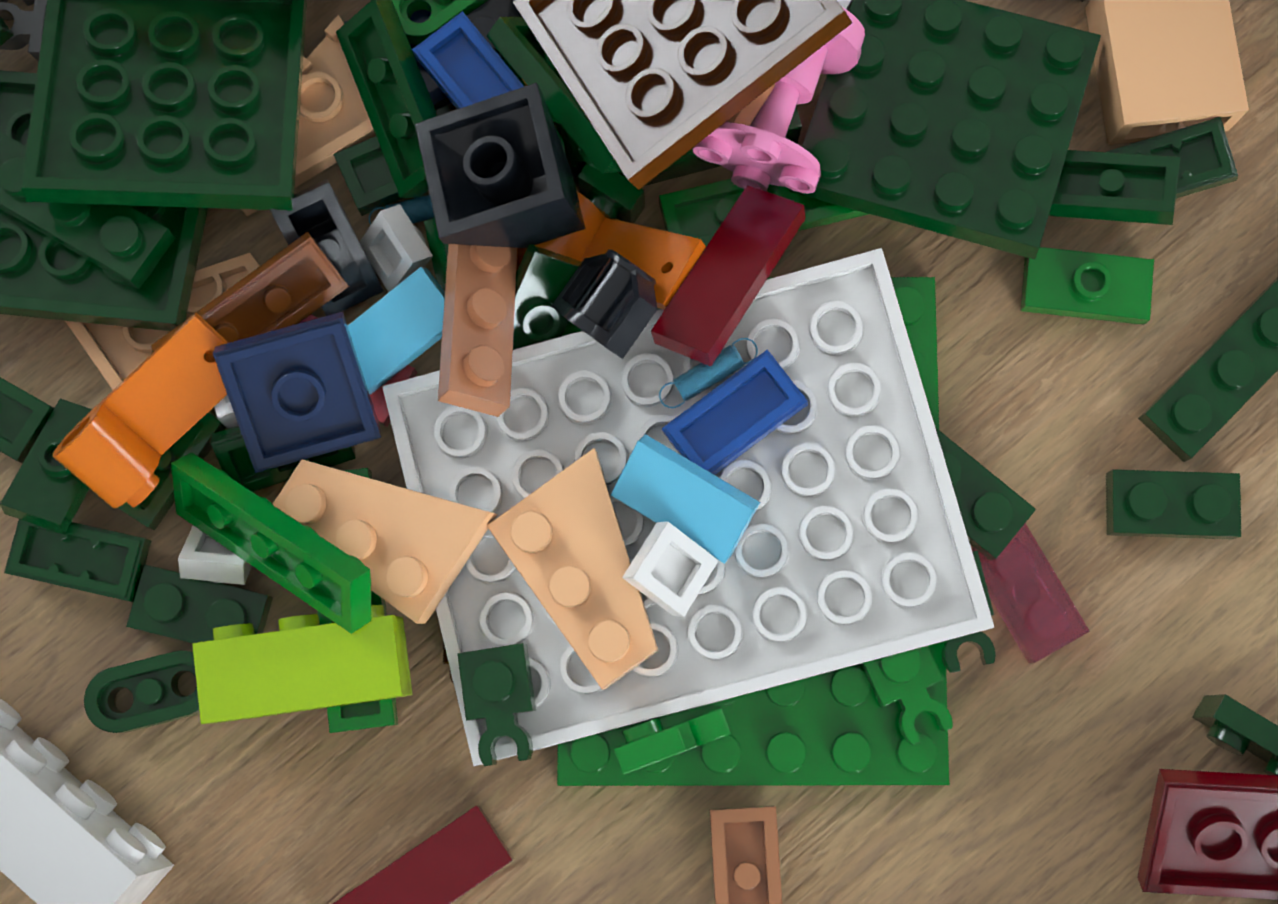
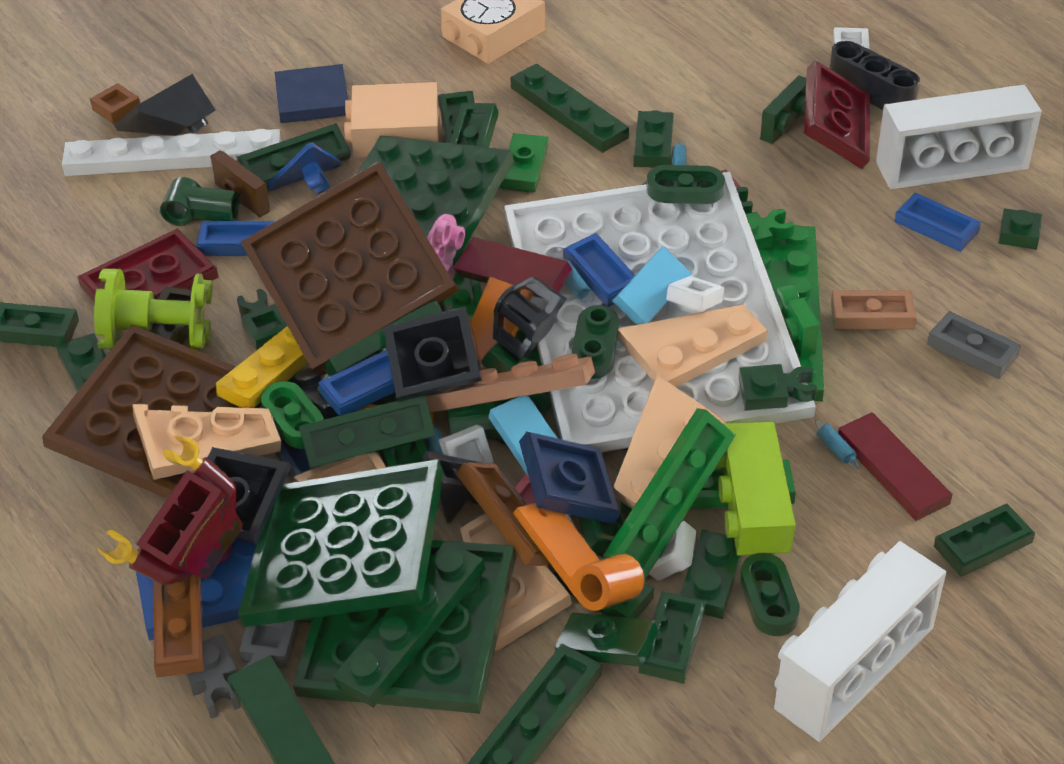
camera: 85 degrees left, 35 degrees down
(455, 801) = (836, 444): none -> medium azure piece
(576, 416) = (597, 334): none -> dark green plate
(932, 547) = (685, 184): none -> dark green plate
(1116, 550) = (679, 154): none -> medium azure piece

